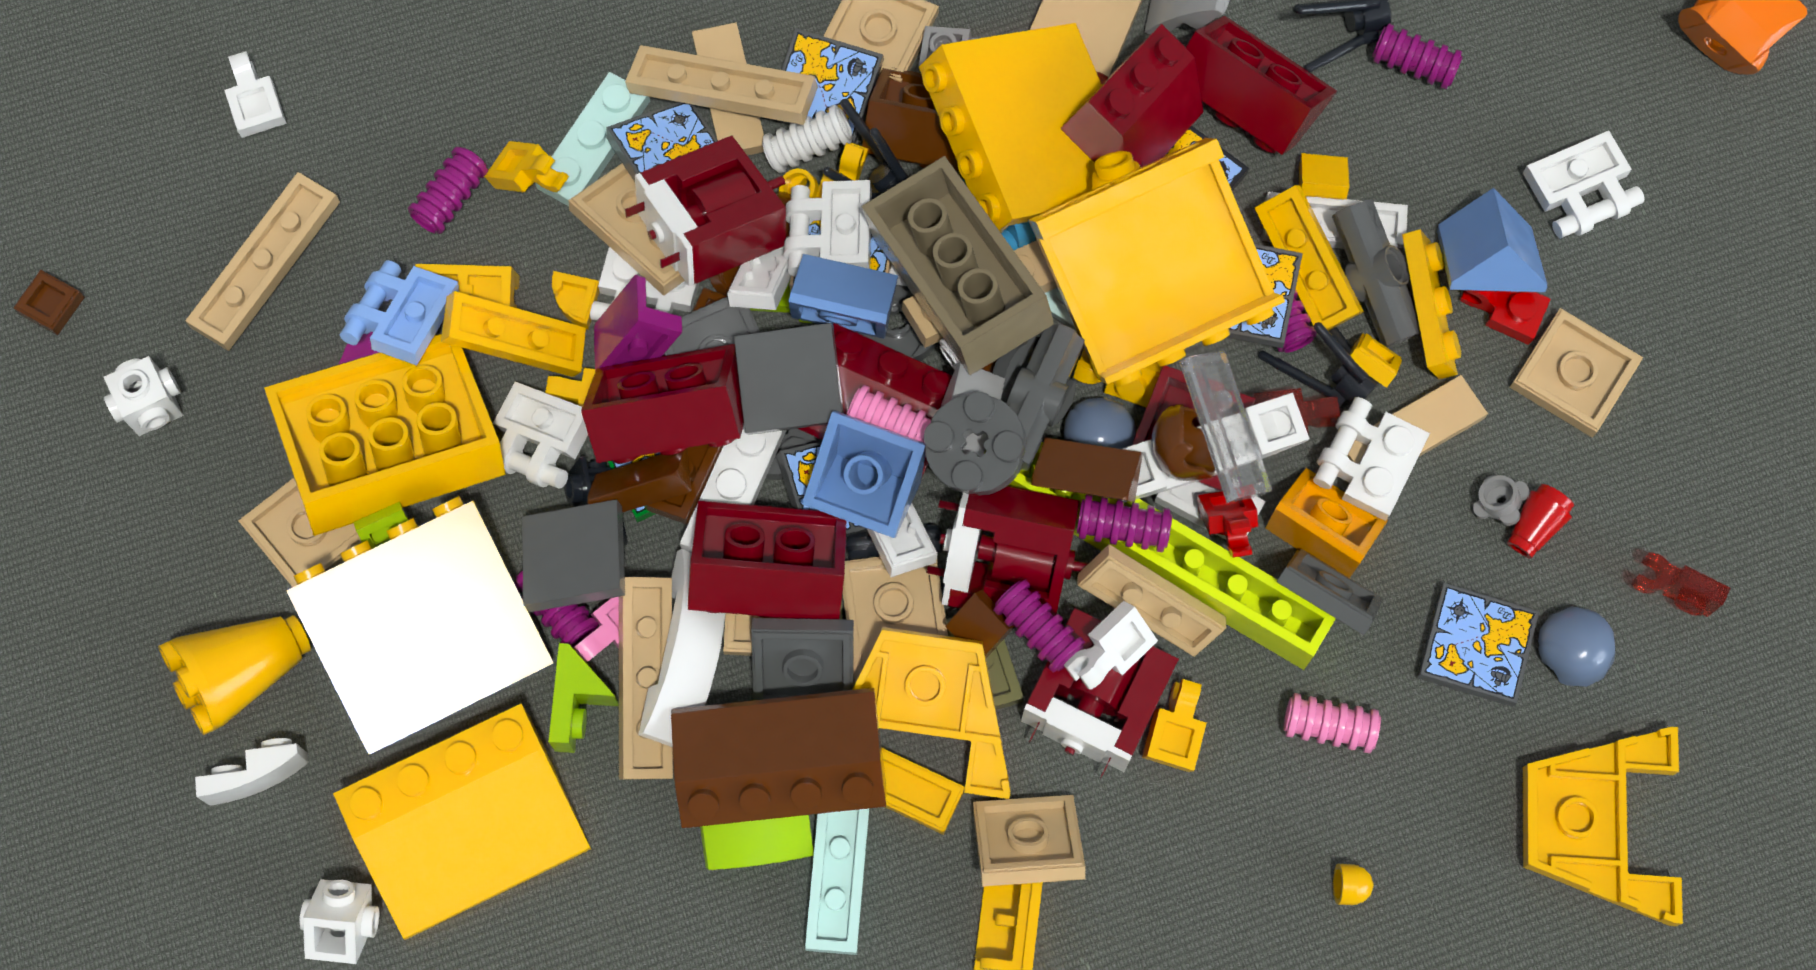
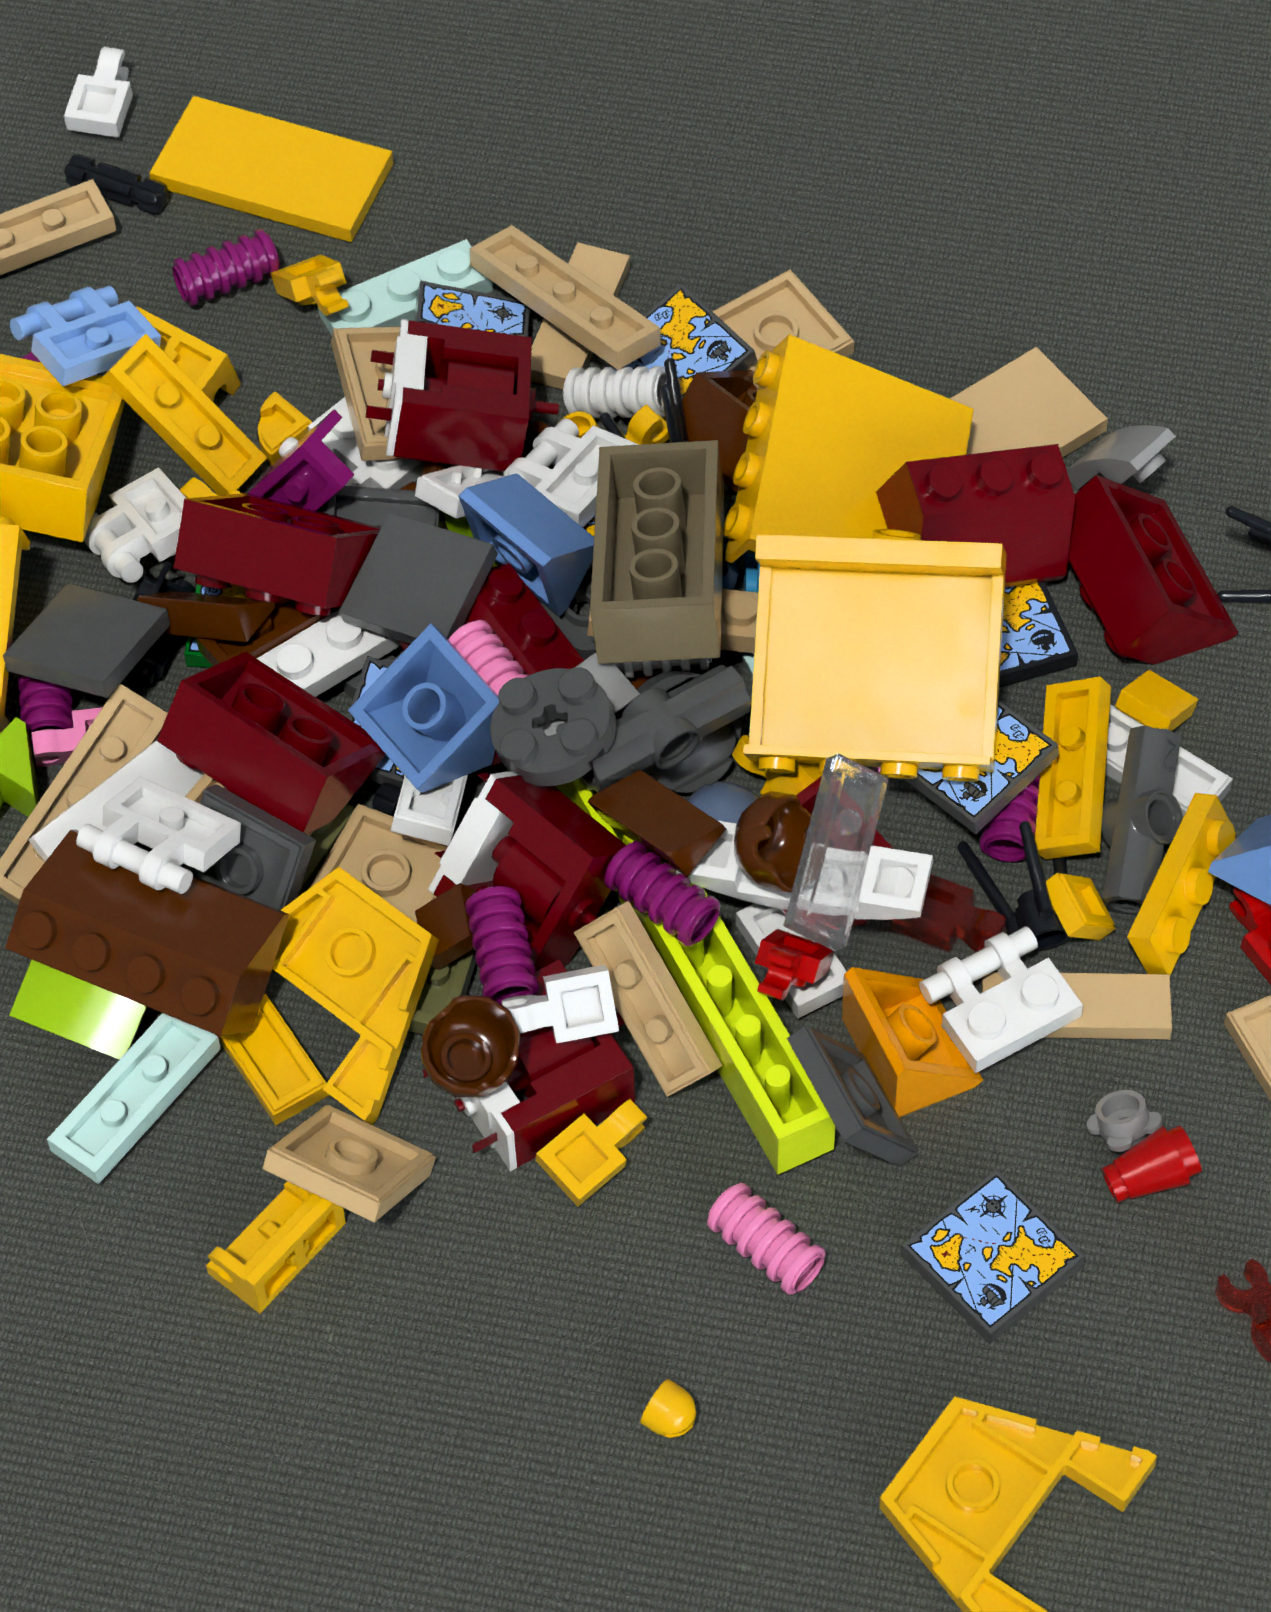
camera: 35 degrees right, 15 degrees down
(313, 163) = (118, 183): none -> black axle
(421, 88) = (272, 168): none -> yellow tile
(741, 671) = (166, 822): none -> white plate
(1075, 717) = (471, 1046): none -> reddish brown hair
(1577, 646) = (1105, 1318): sand blue hair -> none

